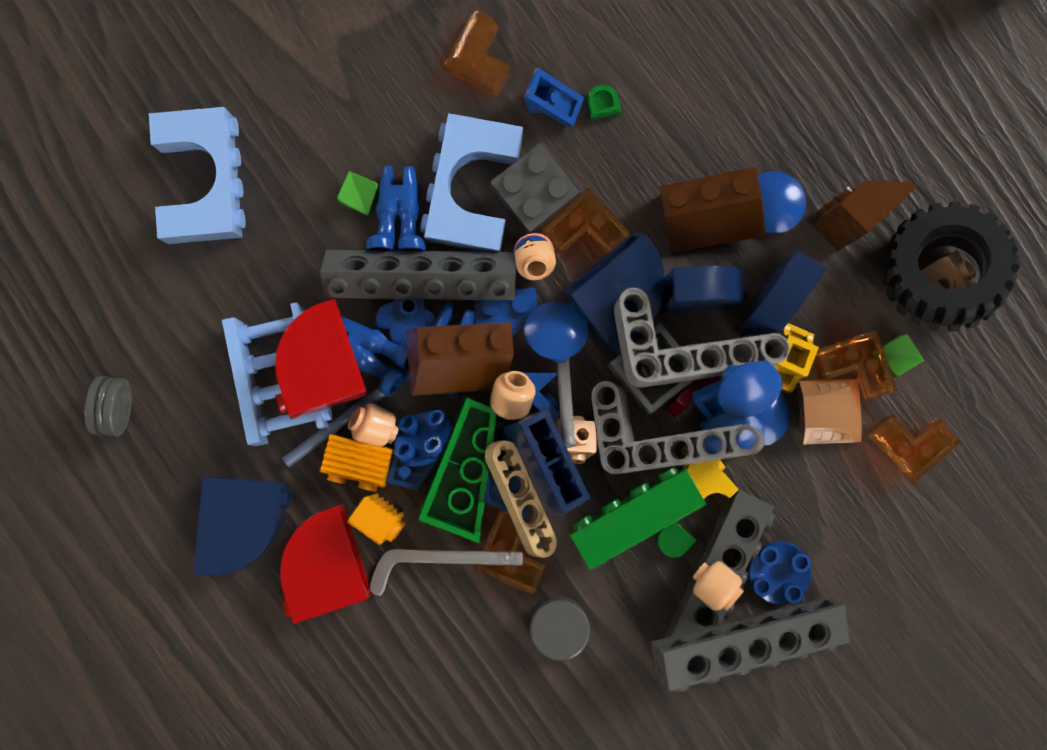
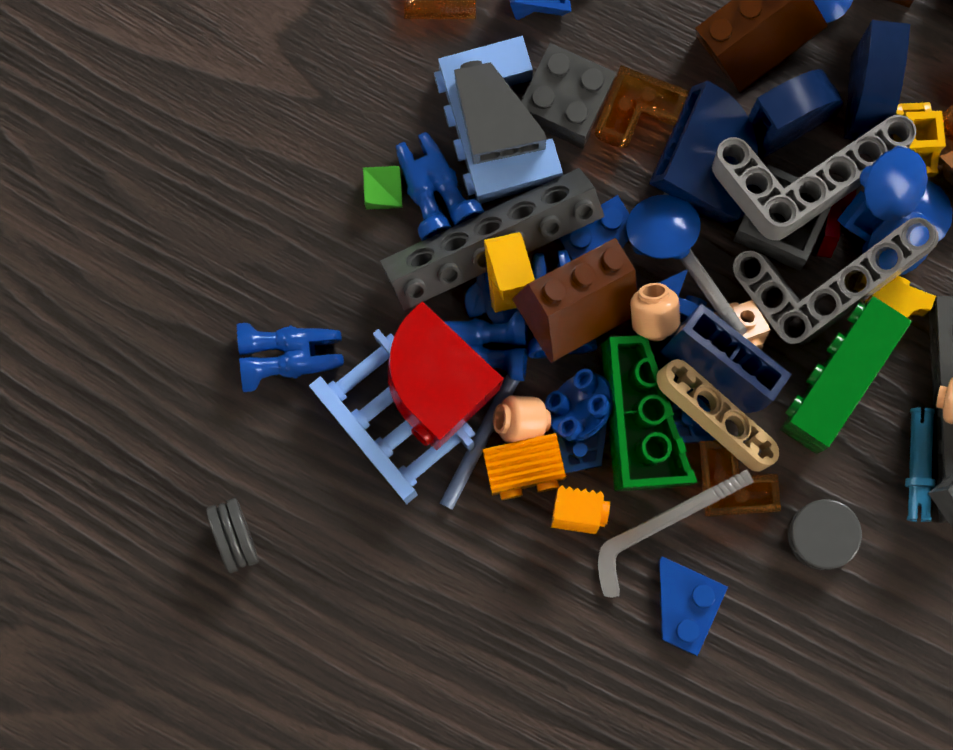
camera: 25 degrees left, 5 degrees down
(219, 212) = (192, 201): light blue arch -> none
(232, 286) = (298, 355): none -> blue piece
(237, 522) = (430, 591): dark blue brick -> none
(322, 567) = (543, 594): red brick -> none
(415, 304) = (507, 269): none -> yellow slope
(429, 628) = (687, 605): none -> blue wing
(464, 179) = (494, 115): none -> dark grey slope
(534, 256) = (602, 162): light nougat head -> none
(660, 611) = (920, 465): none -> dark azure pin
(674, 540) = (895, 385): green tile -> none

